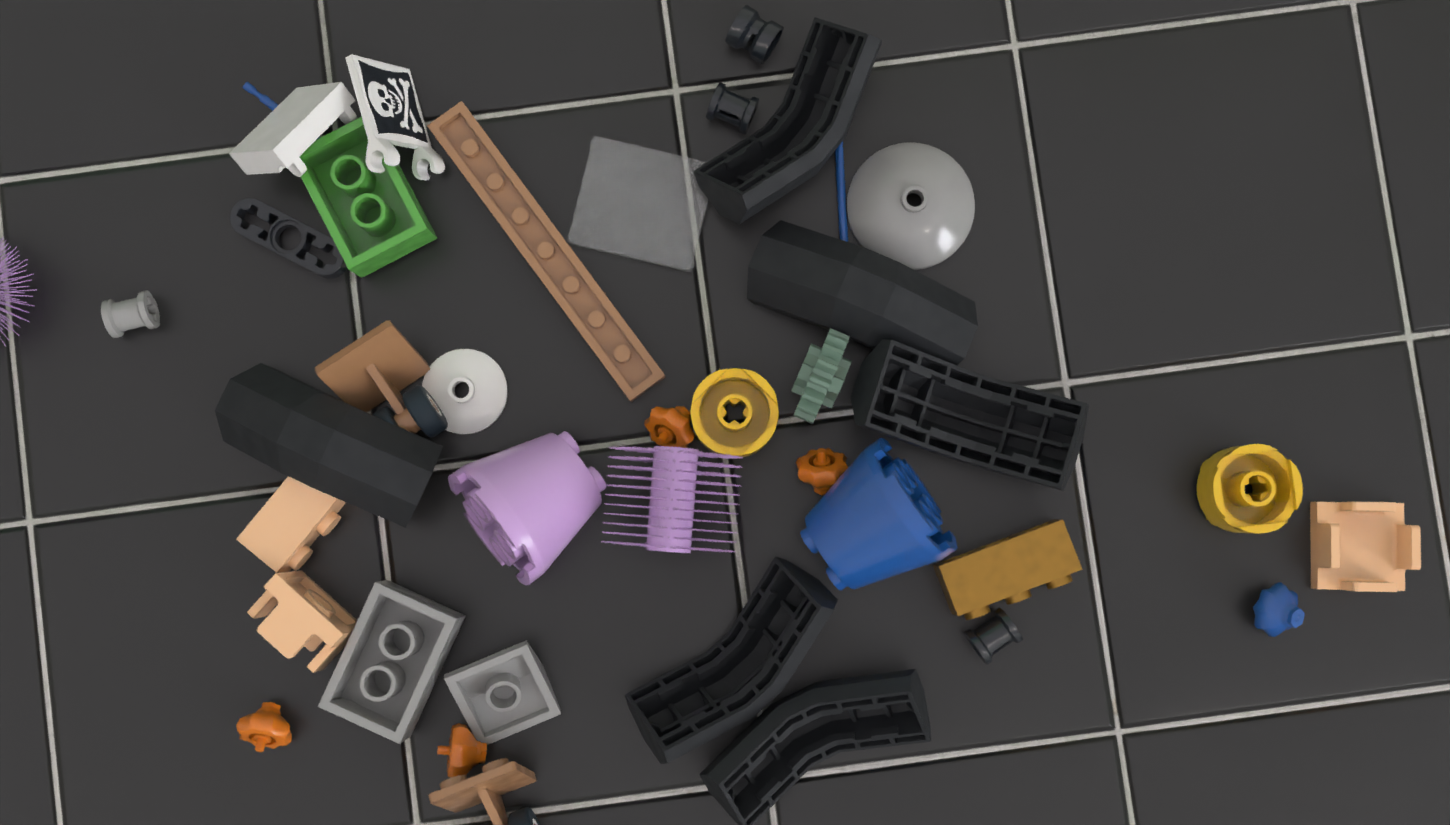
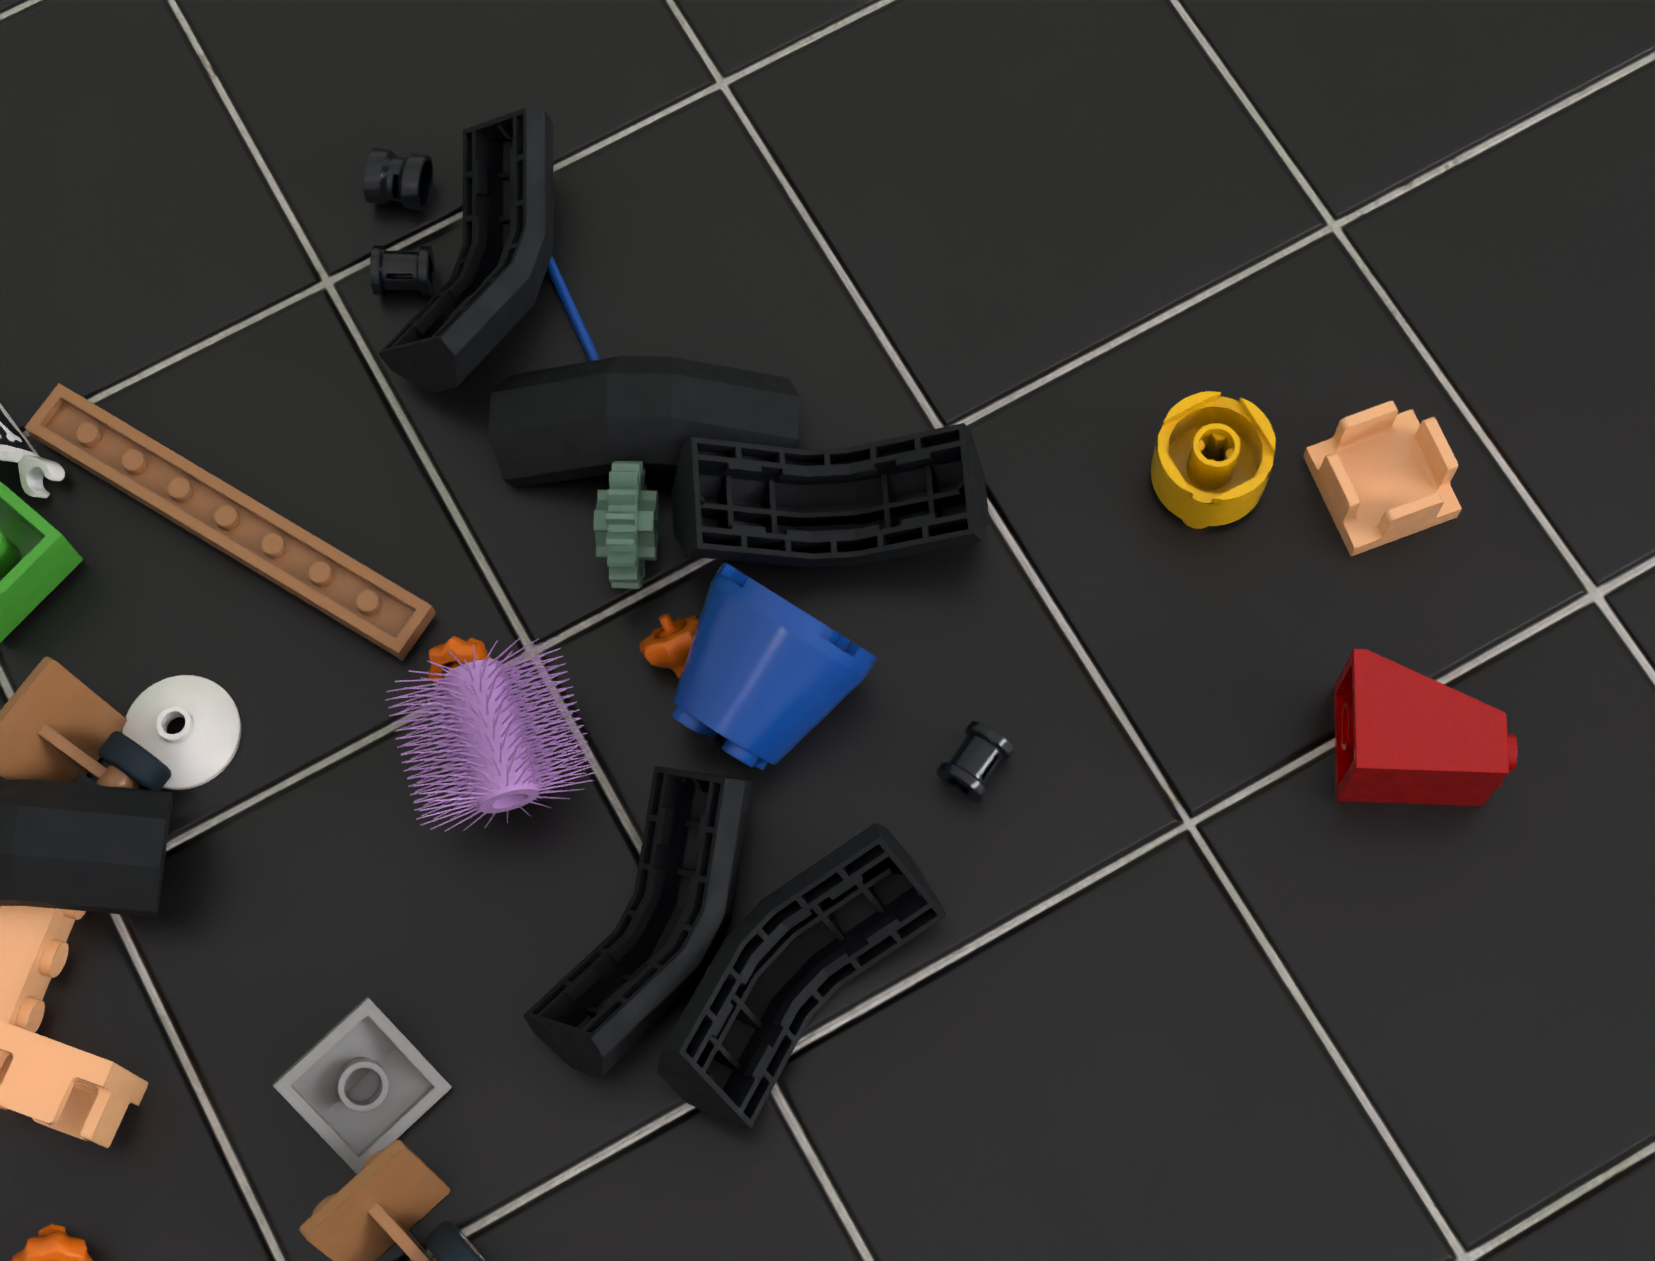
camera: 20 degrees left, 15 degrees down
(391, 661) = (196, 1094): light grey brick -> none
(463, 751) = (328, 1172): orange piece -> none
(529, 501) = (304, 817): lavender cone -> none
(639, 205) = (329, 427): clear piece -> none
(734, 387) = (527, 586): yellow brick -> none
(906, 233) = (693, 320): light grey dish -> none
(1008, 569) = (958, 671): pearl gold brick -> none
(1277, 610) = (1315, 591): blue piece -> none
(1297, 746) = (1414, 738): none -> red slope

